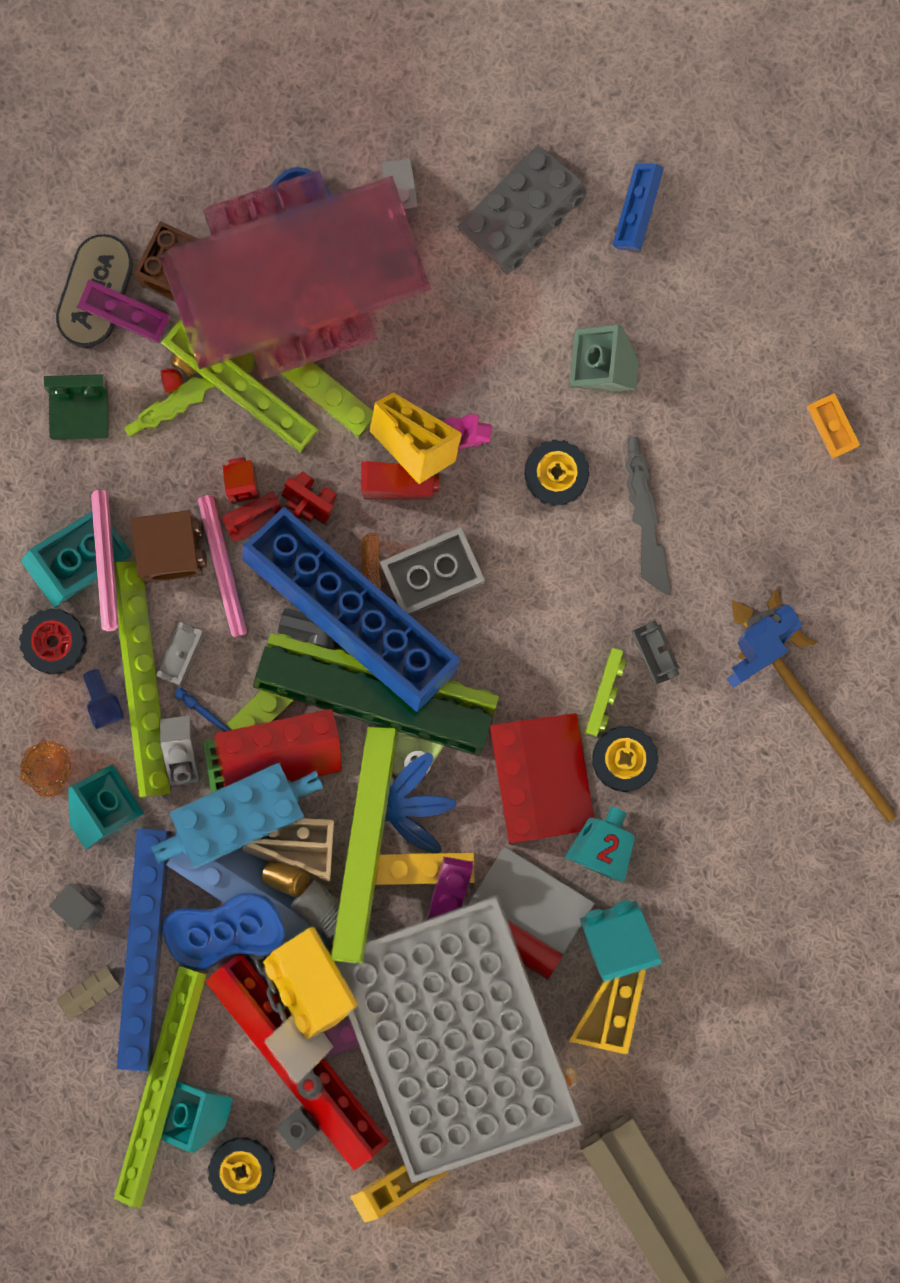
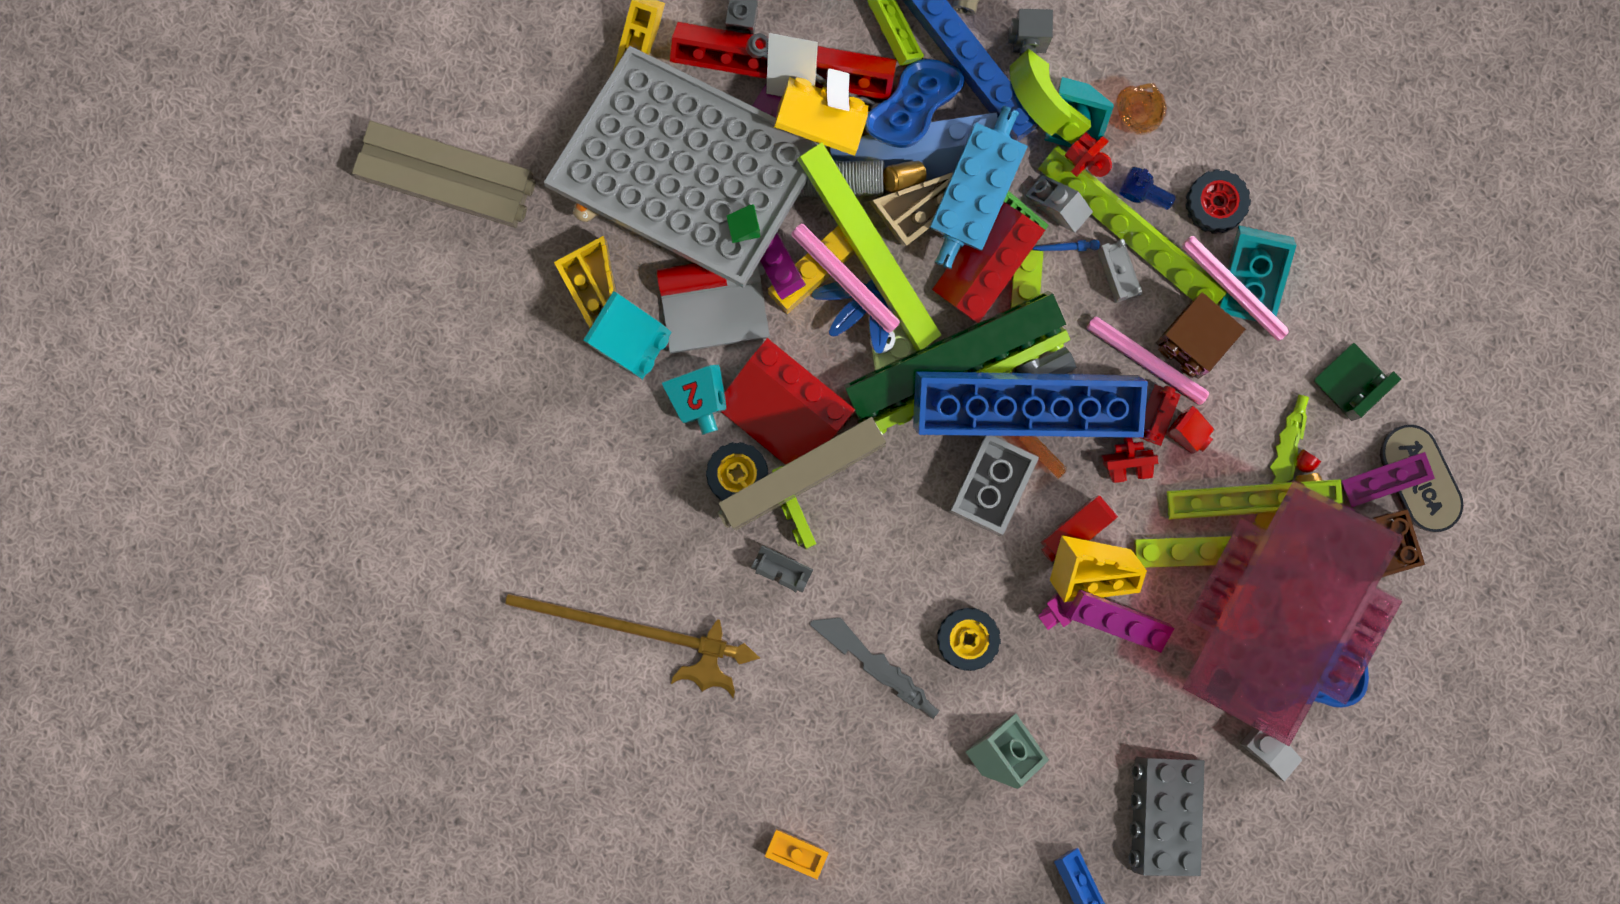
camera: 130 degrees right, 0 degrees up
(122, 843) = (1041, 100): none -> lime arch
(123, 768) = (1087, 153): none -> red hips
(278, 992) = (838, 89): none -> white sticker
(406, 835) = (845, 278): none -> bright pink axle
(429, 383) = (1120, 621): none -> magenta plate
(453, 944) = (743, 224): none -> green slope
(580, 707) = (801, 475): none -> dark tan brick
(764, 641) = (710, 645): blue plate -> none

